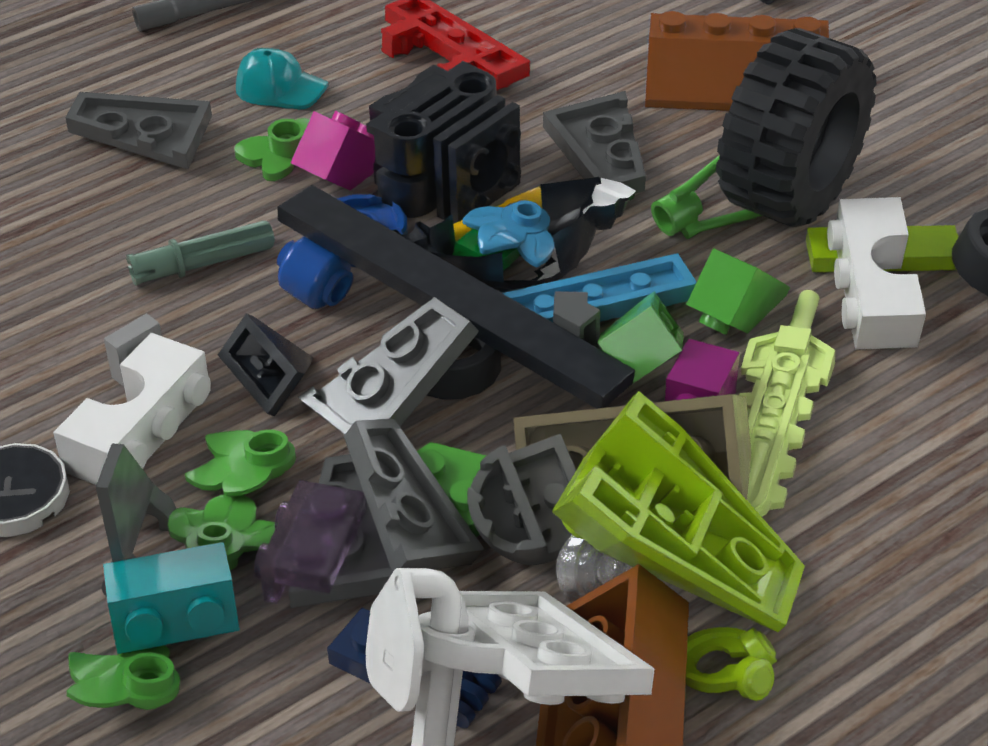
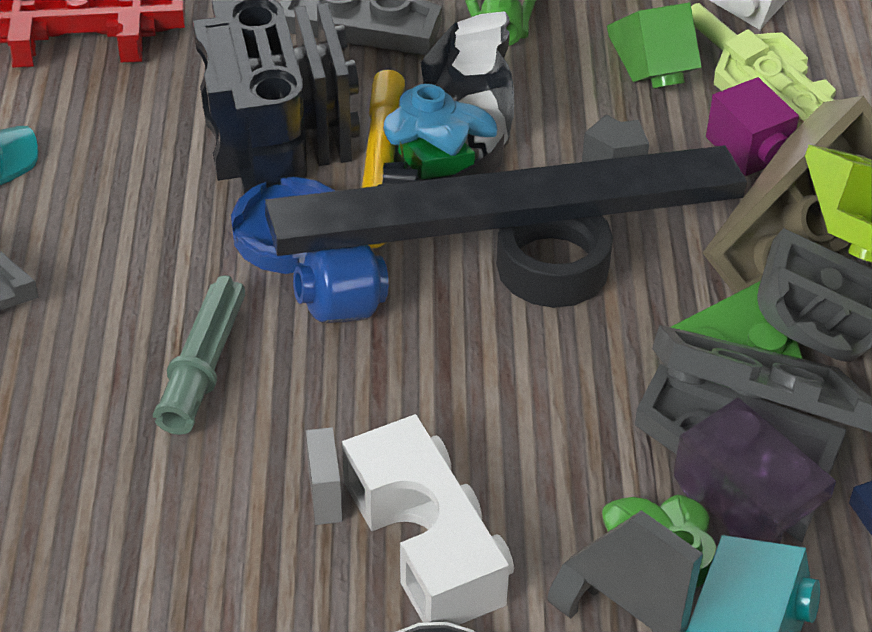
camera: 55 degrees left, 5 degrees up
(243, 461) = (568, 477): bright green plate -> none
(264, 362) = (439, 390): black slope -> none
(275, 150) = (95, 213): bright green animal -> none
(336, 150) = (174, 167): dark pink slope -> none
(398, 372) = (581, 303): wing -> none
(616, 288) = (571, 108): dark azure plate -> none
(643, 337) = (676, 113): bright green slope -> none

